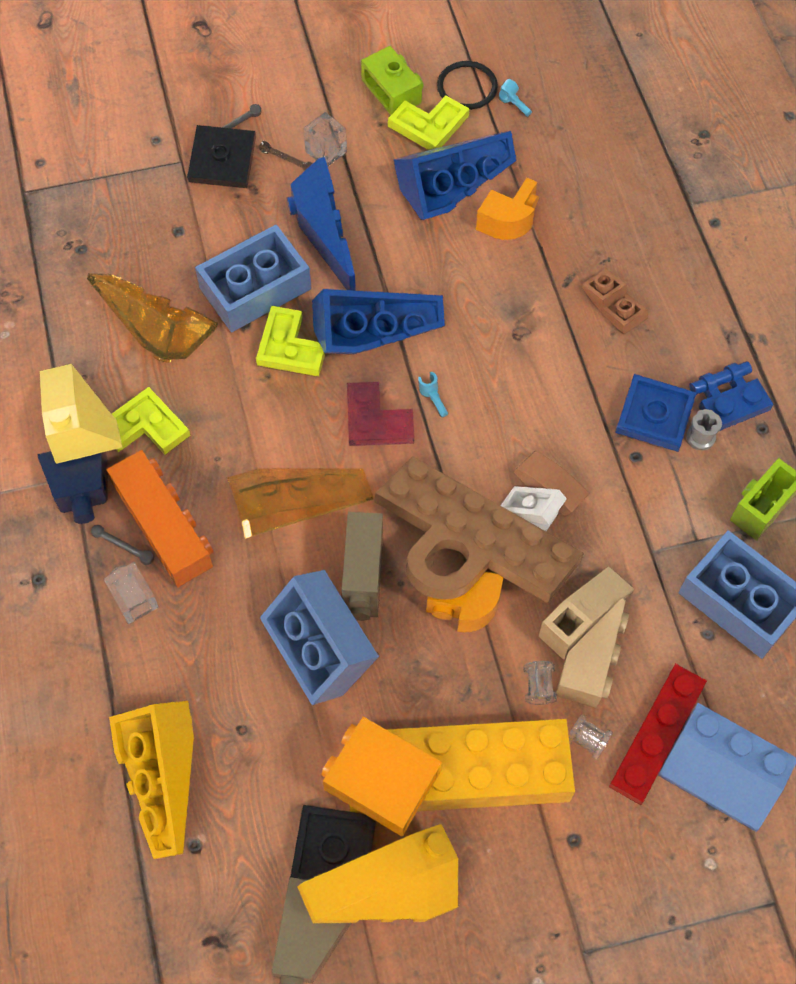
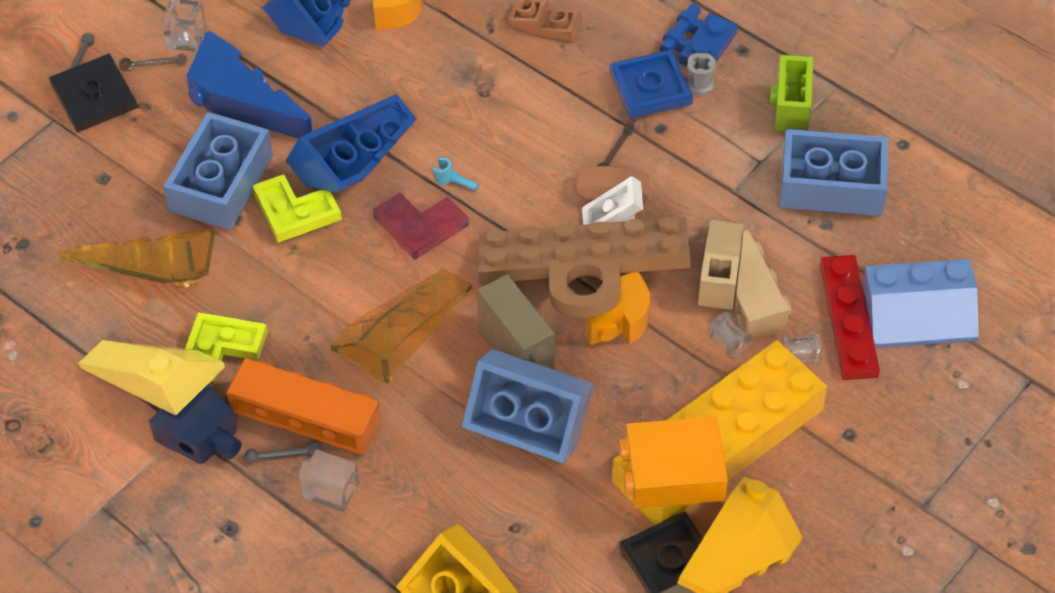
camera: 35 degrees left, 10 degrees down
(604, 442) = (627, 131): none -> clear smoke hinge

